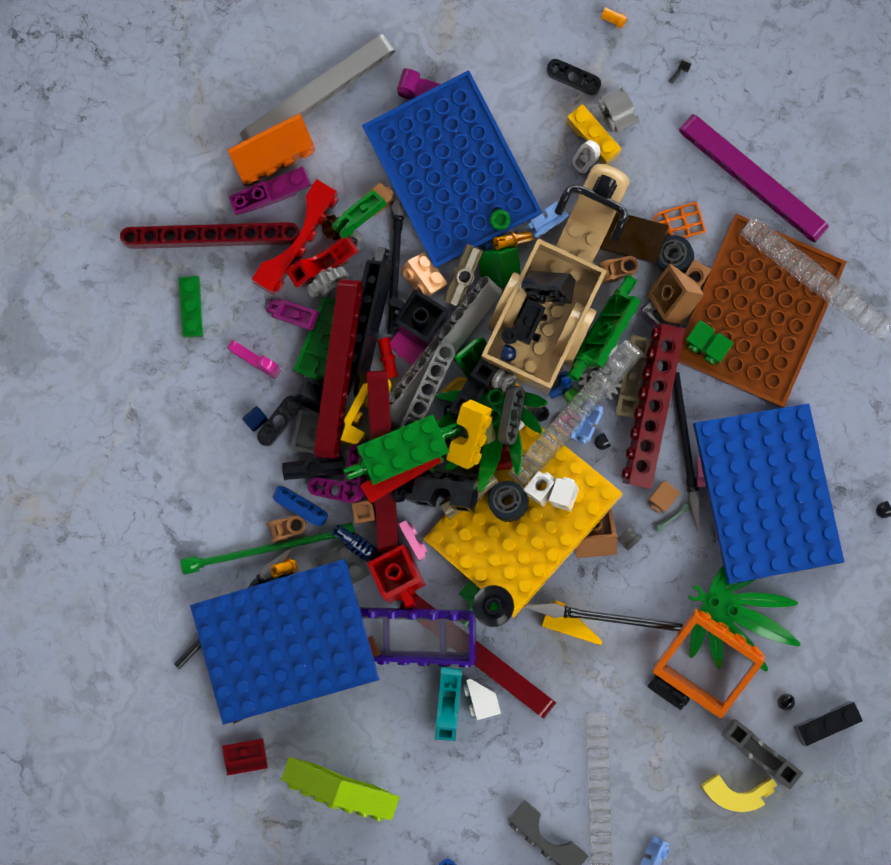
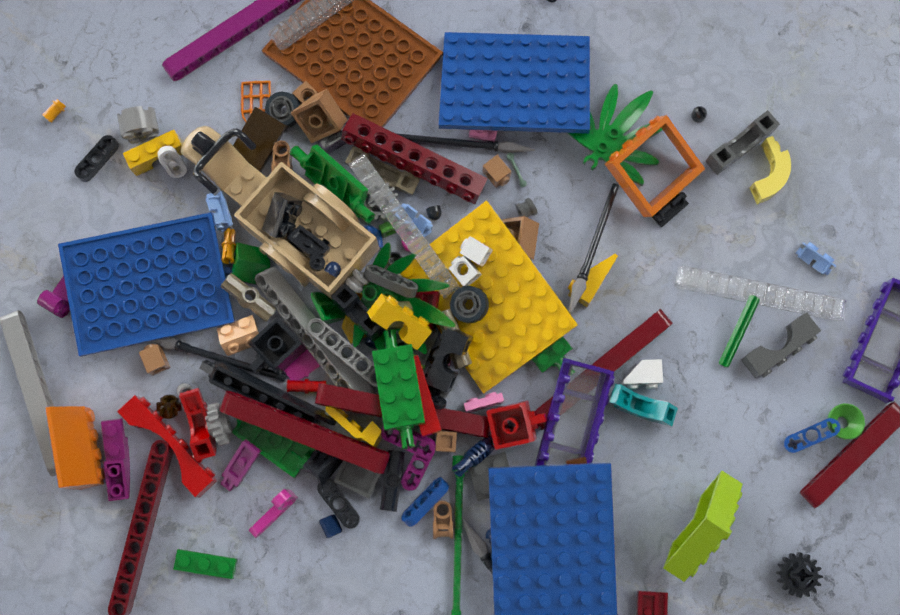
camera: 75 degrees left, 5 degrees down
(287, 567) = (480, 527): light orange pin -> none
(359, 213) = (162, 377): green hinge -> none
(482, 606) = (572, 332): black dish -> none
(500, 220) = (207, 250): green tile -> none
(551, 789) = (739, 331): none -> green axle
(685, 66) = (117, 62): black hand -> none
(707, 343) = (374, 97): green piece -> none
(828, 724) = (724, 71): black arch -> none

